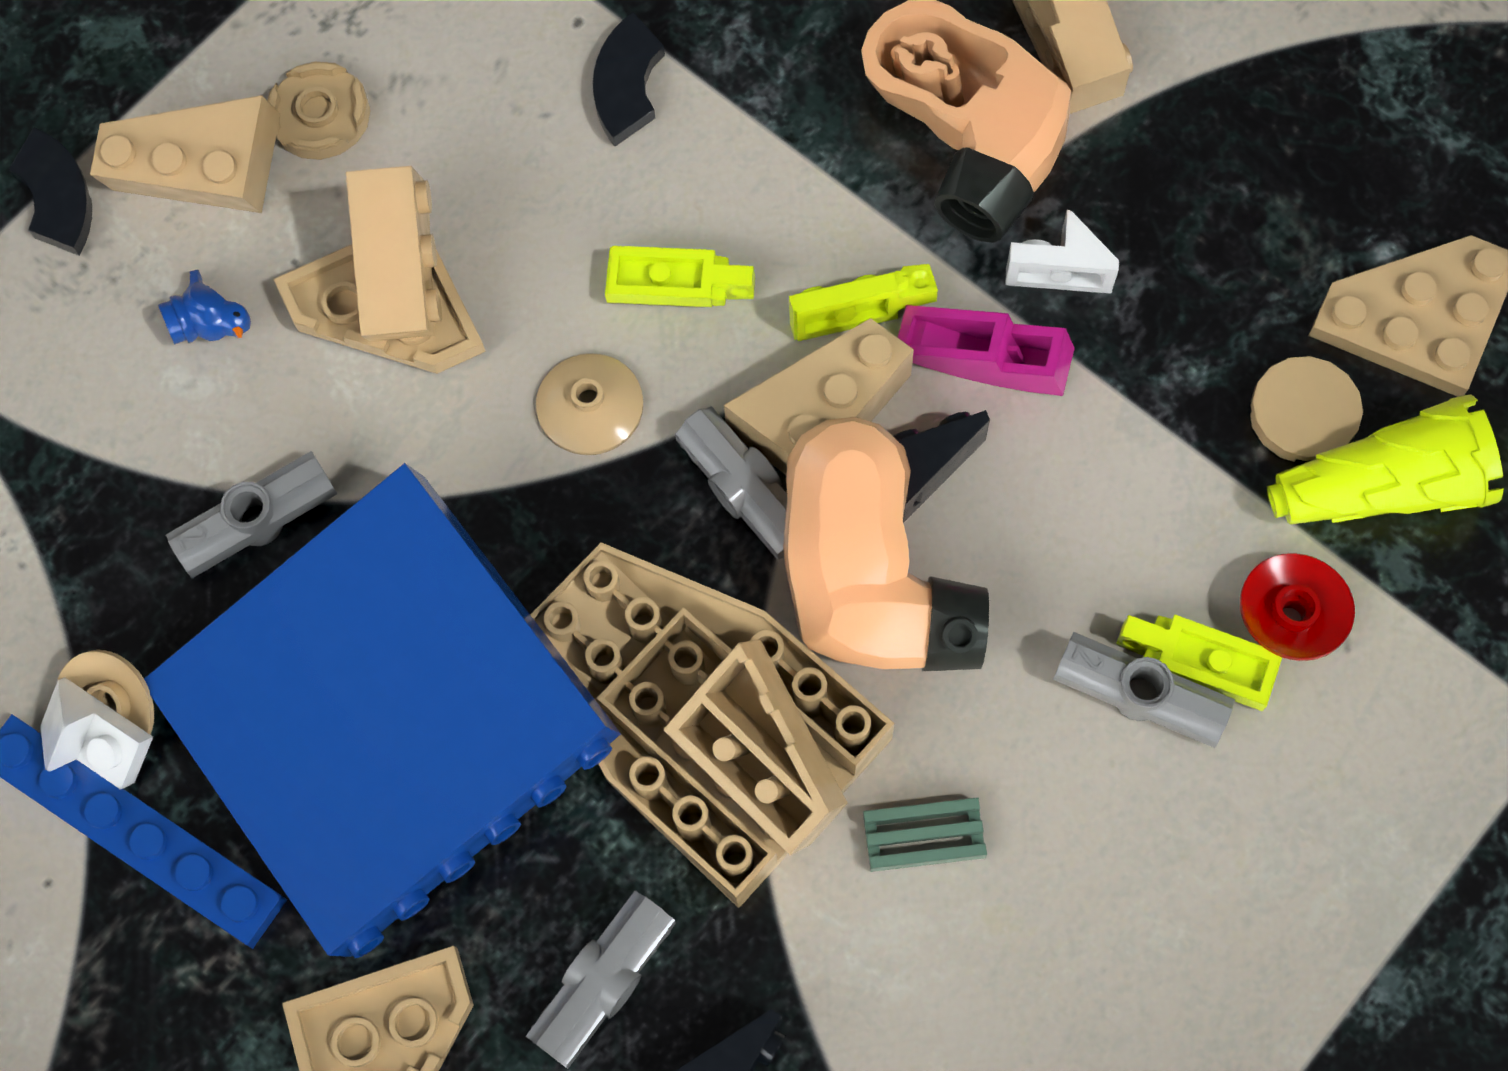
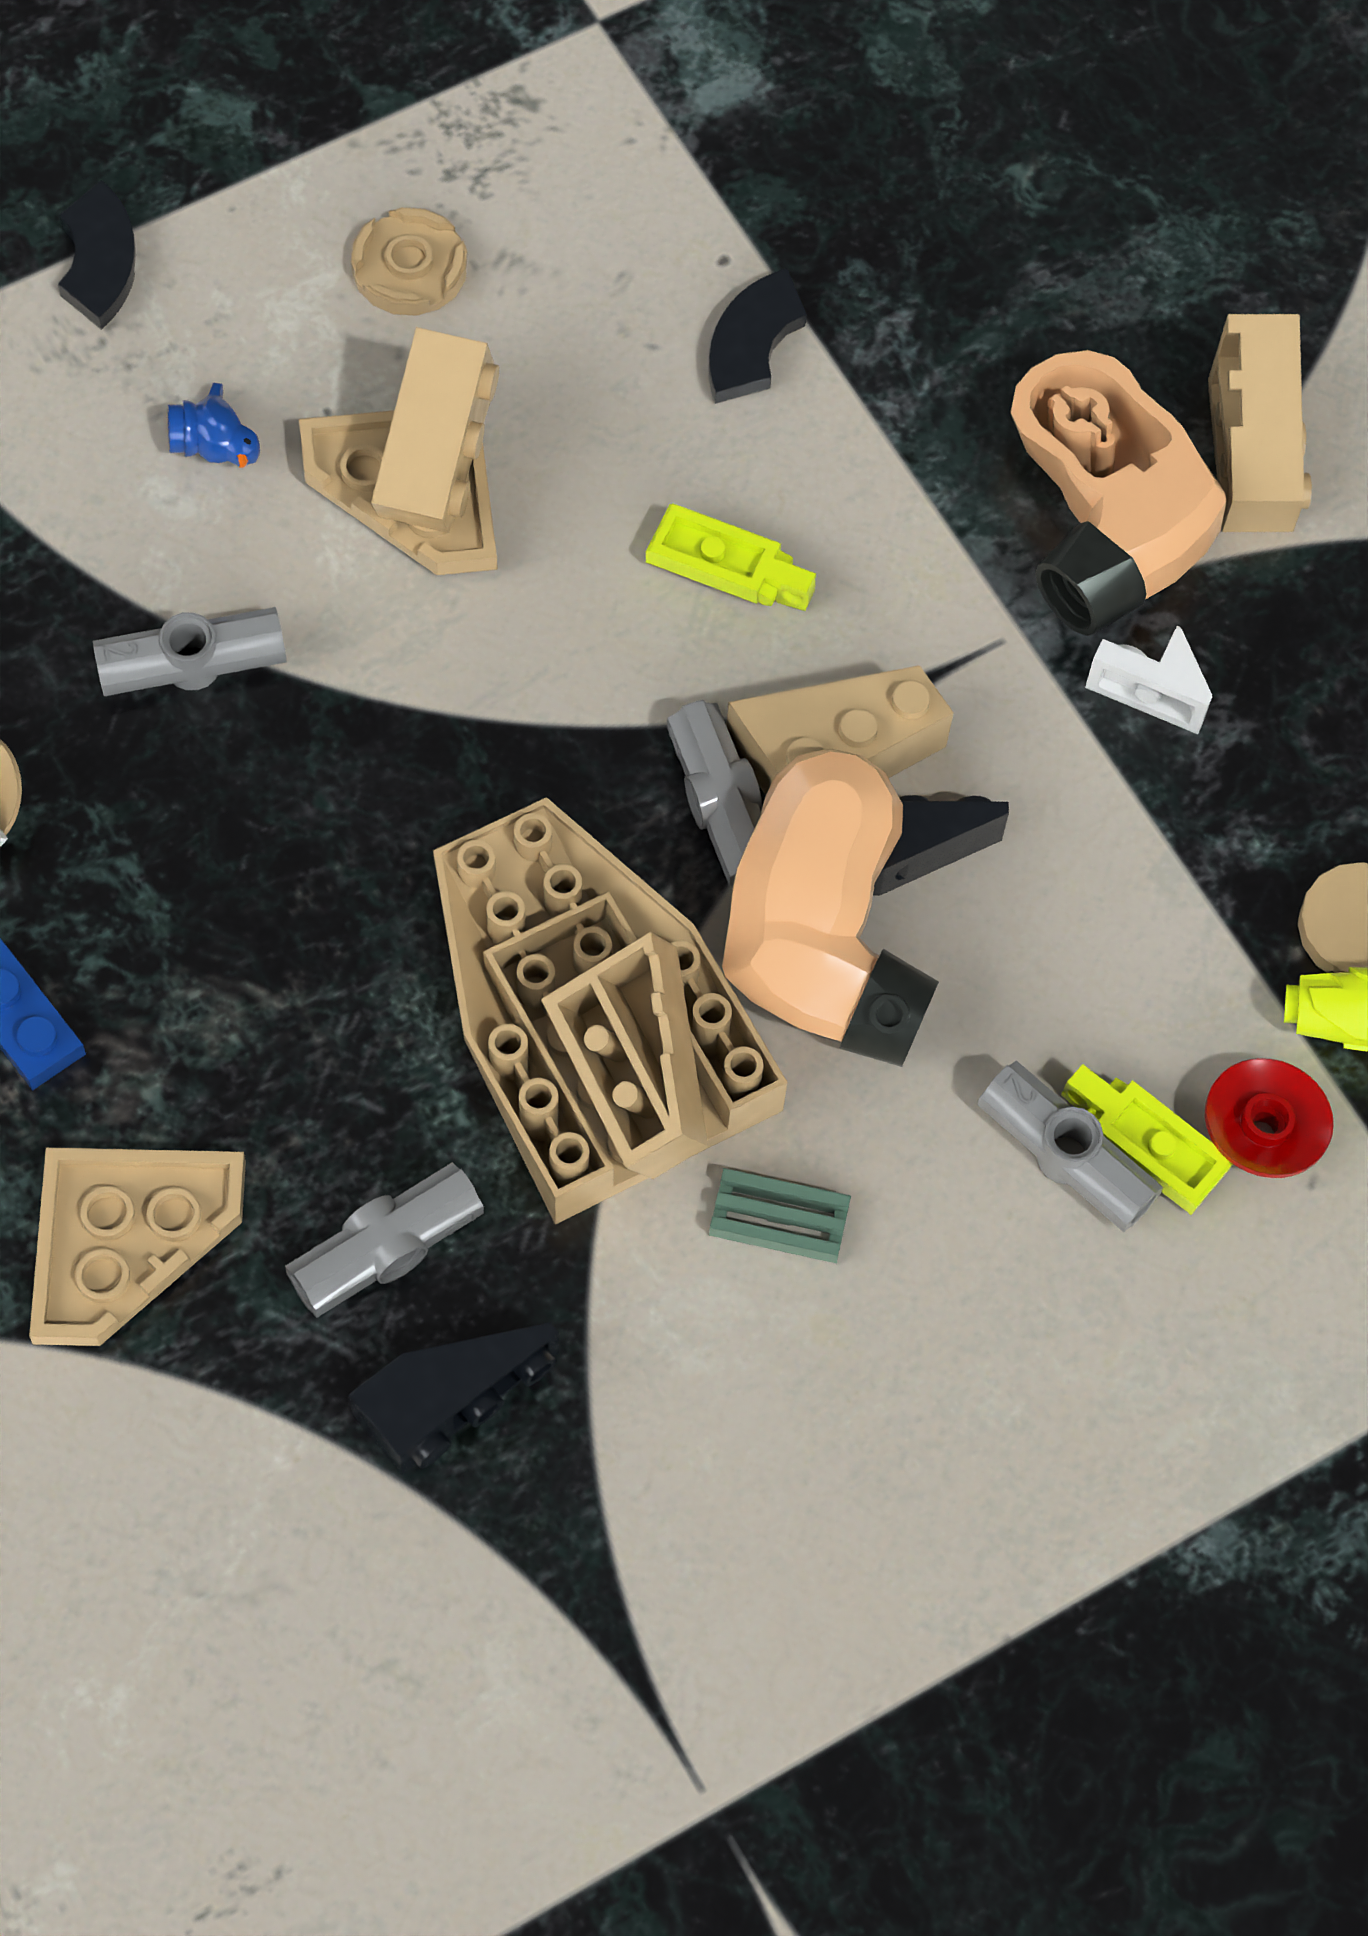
camera: 10 degrees right, 5 degrees down
(192, 154) = (260, 262): tan wedge -> none
(379, 713) = (252, 889): blue brick -> none
(594, 425) = (588, 683): tan dish -> none
(844, 306) = (882, 645): neon yellow hinge -> none
(988, 348) = (1039, 744): dark pink slope -> none

